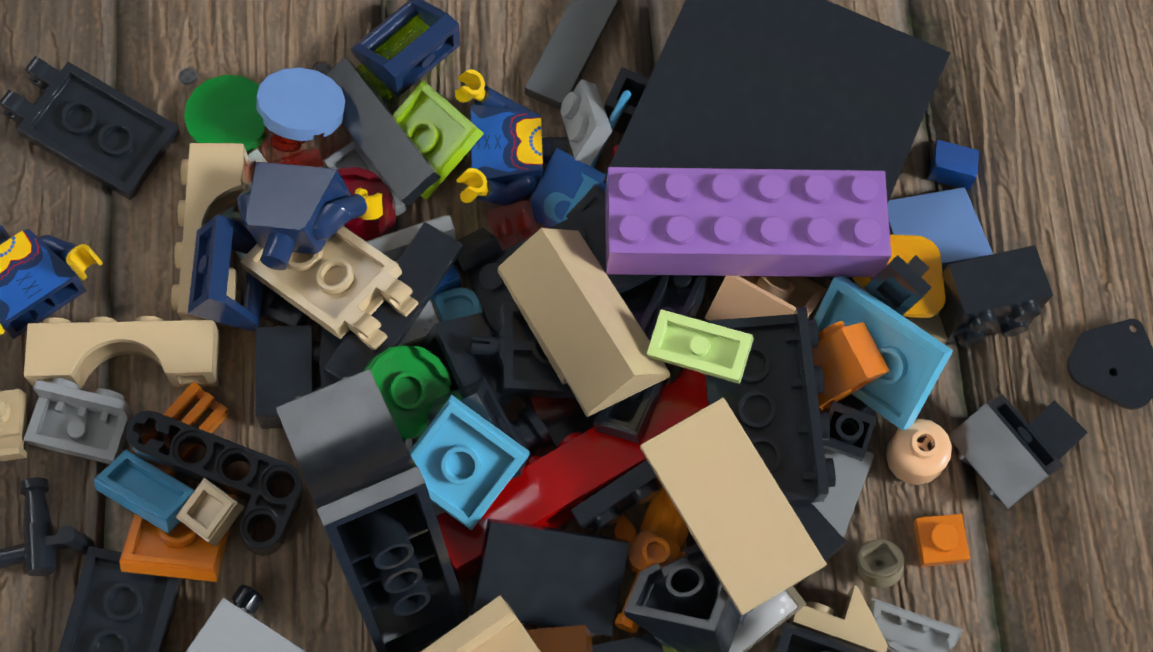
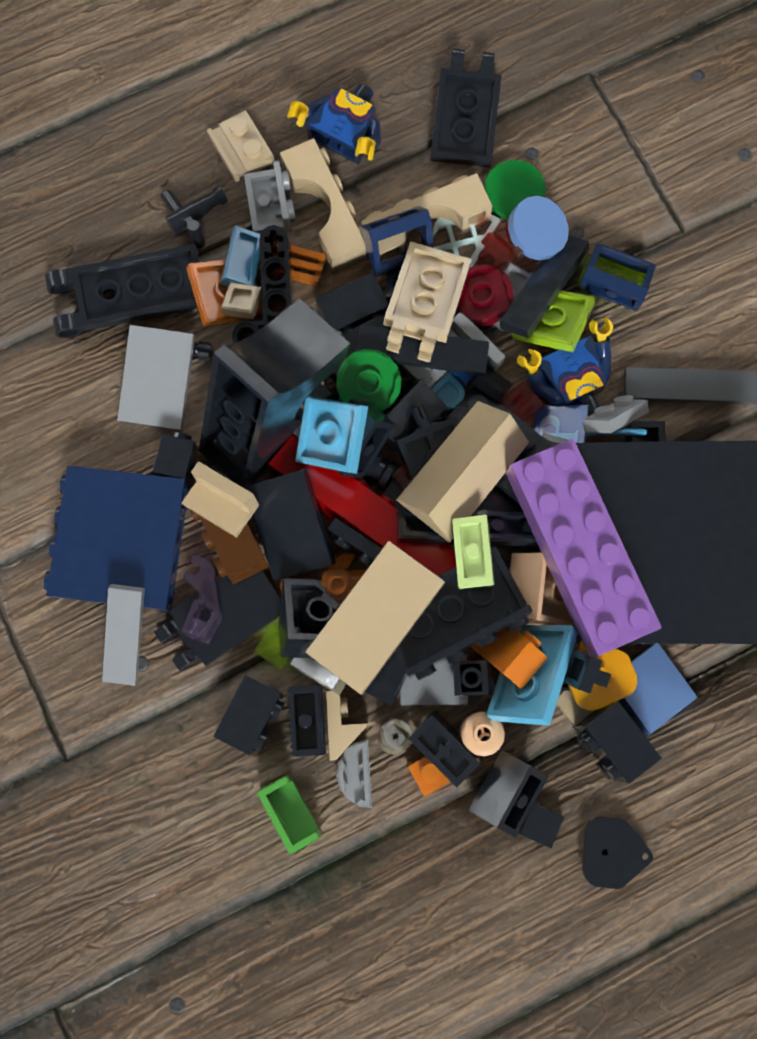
camera: 70 degrees right, 10 degrees up
(300, 209) = (458, 260): dark blue torso -> none
(920, 504) = (444, 748): none -> black hinge
(954, 165) = (713, 683): blue slope -> none

